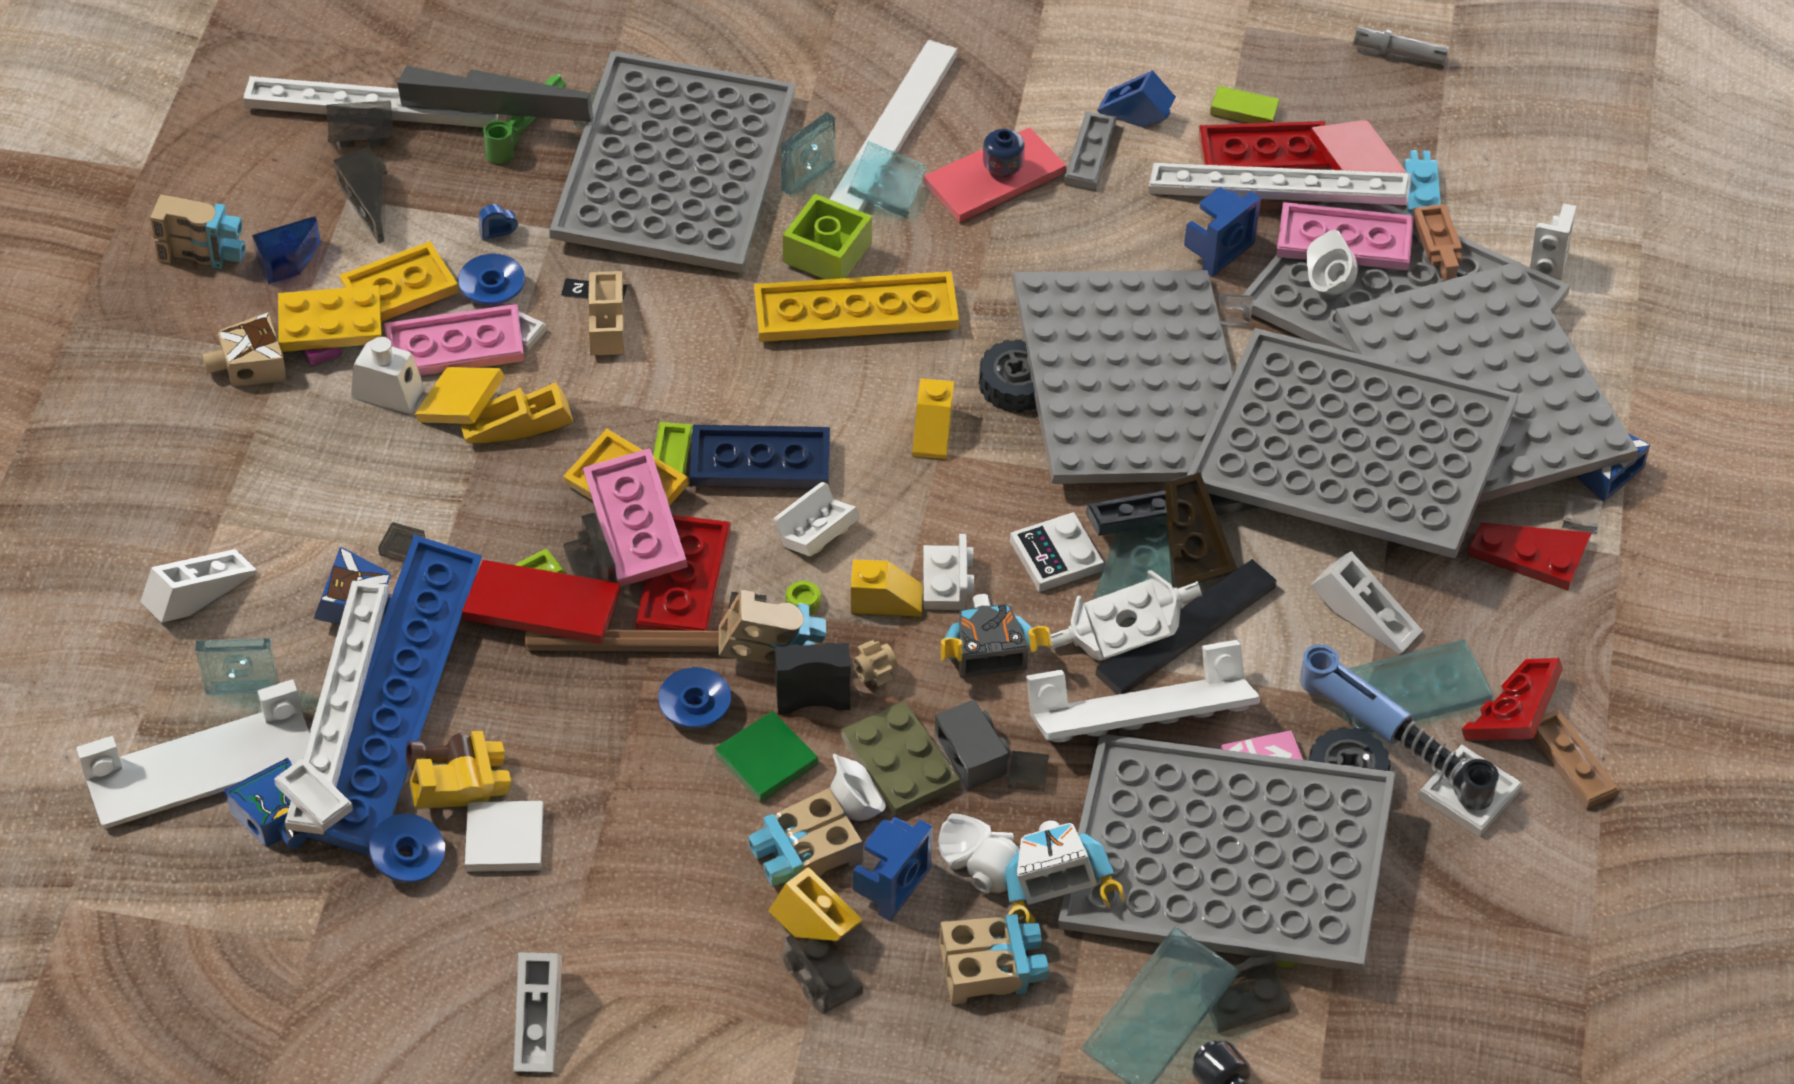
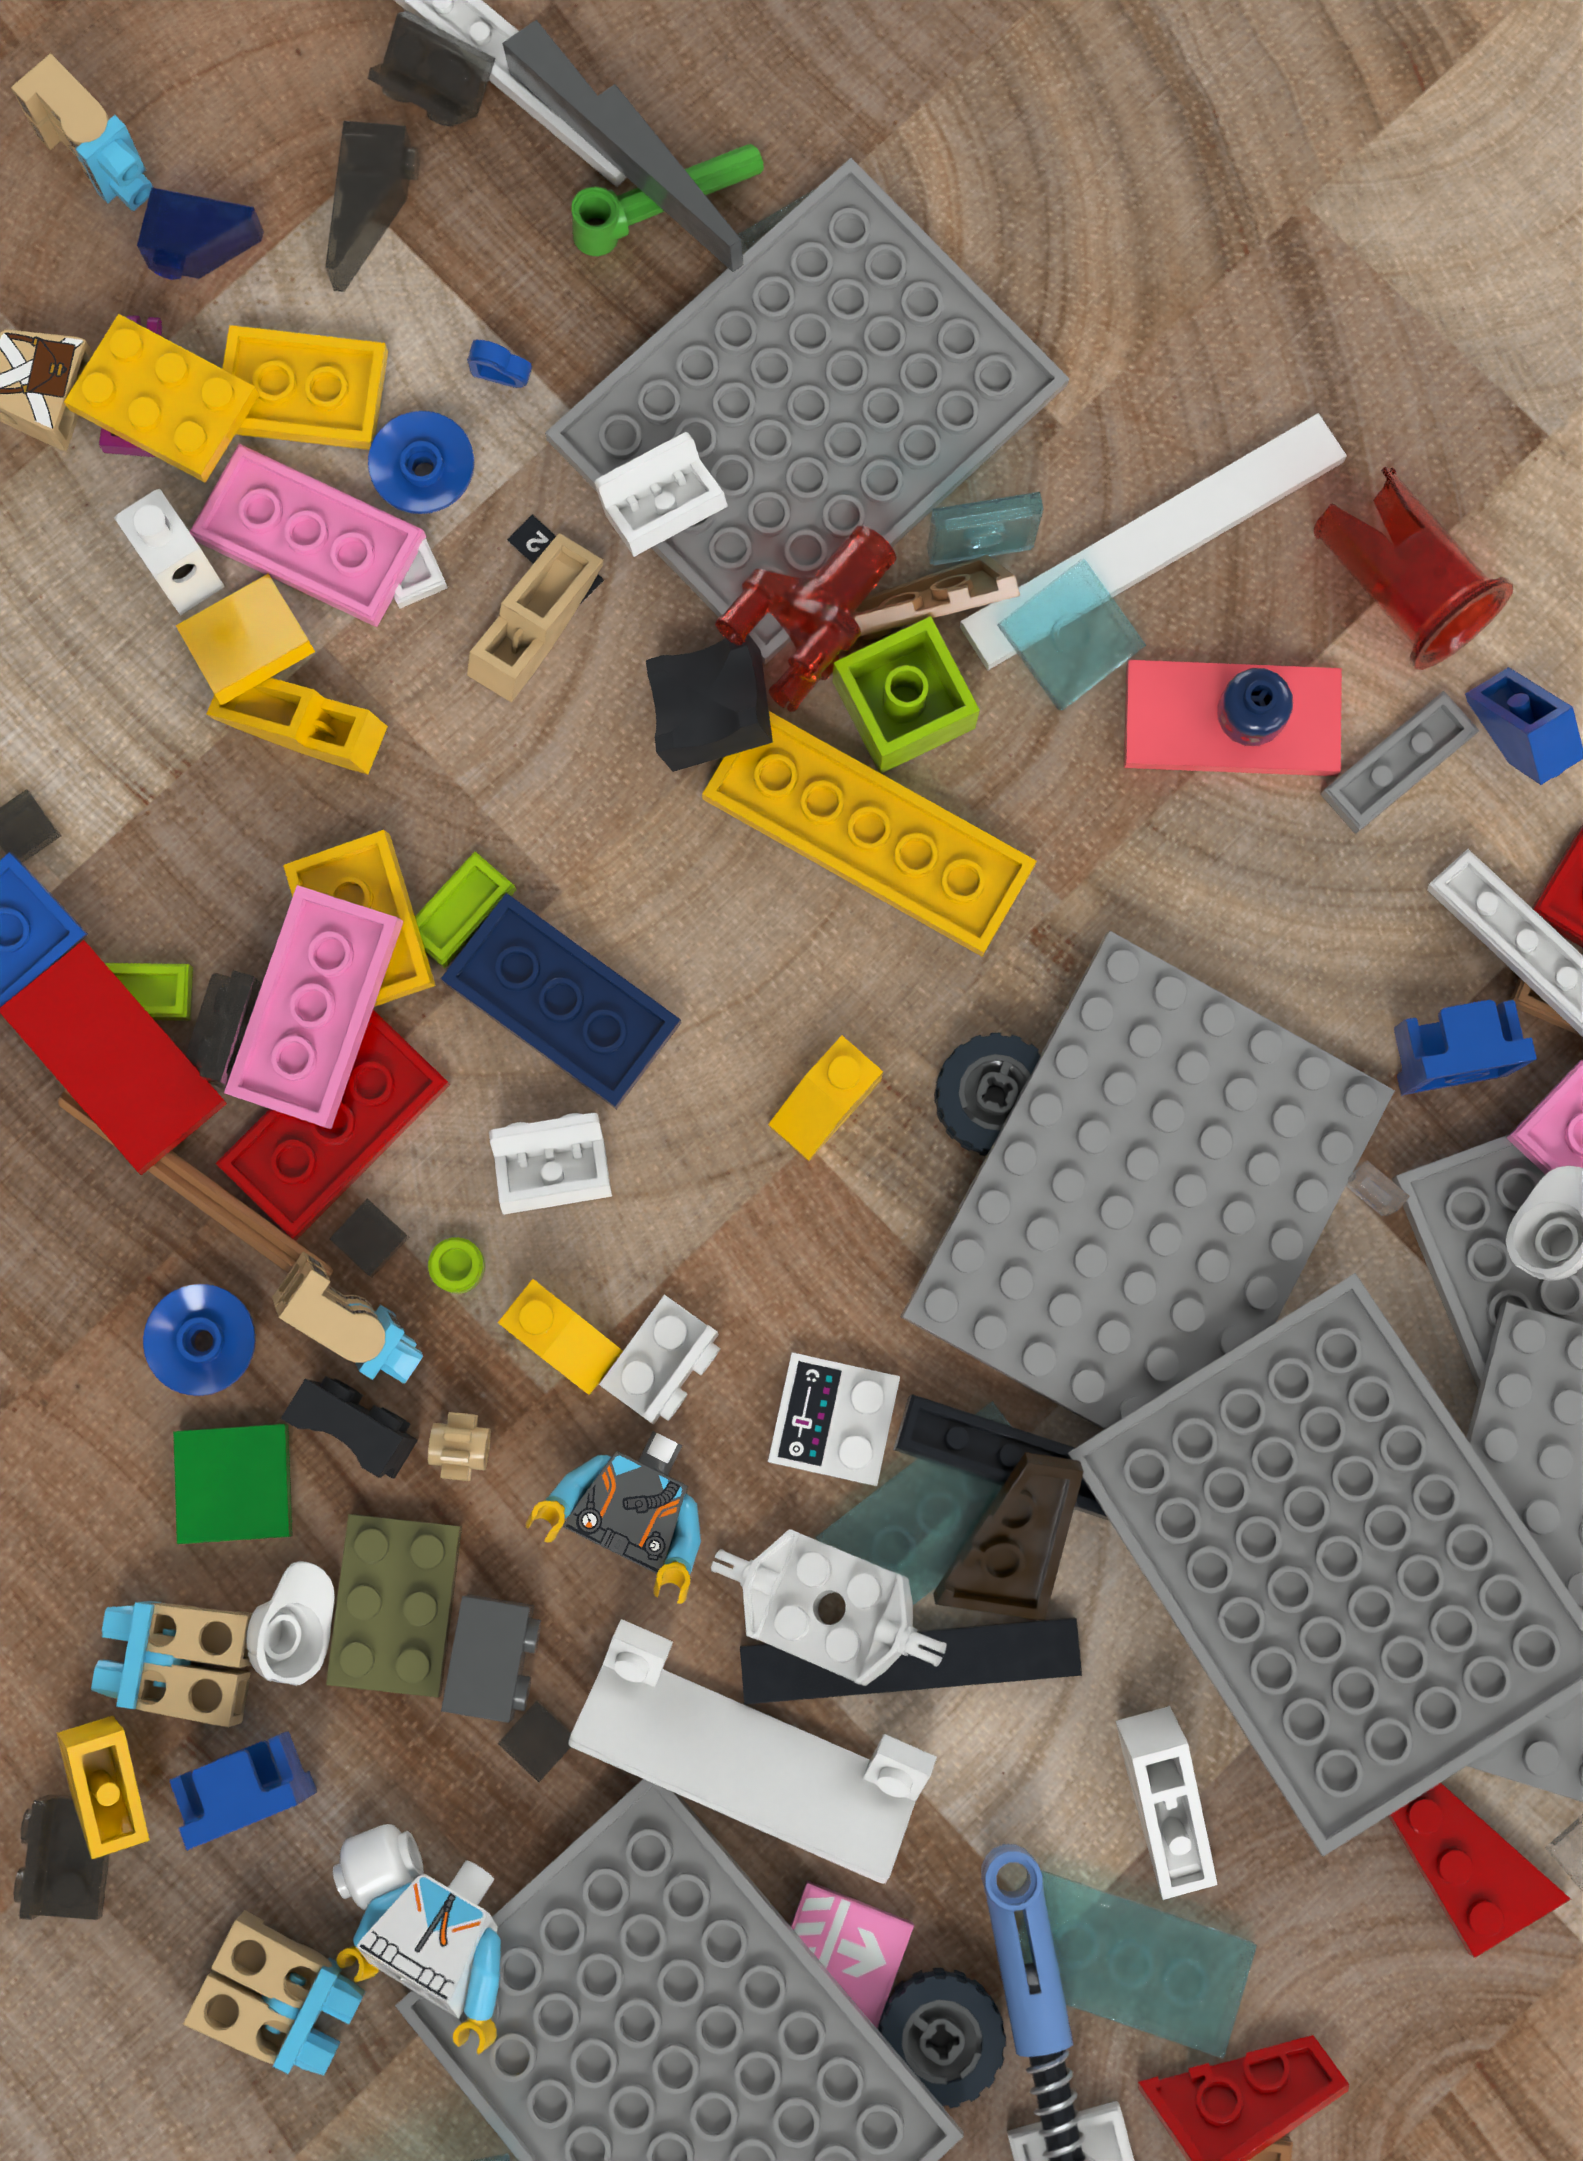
camera: 35 degrees right, 30 degrees up
(633, 217) = (659, 494): none -> white bracket
(731, 290) = (709, 703): none -> black brick
(755, 223) = (812, 610): none -> clear red wheel
(818, 184) = (935, 595): none -> medium nougat wing
(962, 836) = (378, 1794): white piece -> none
(1030, 67) = (1421, 578): none -> clear red piece

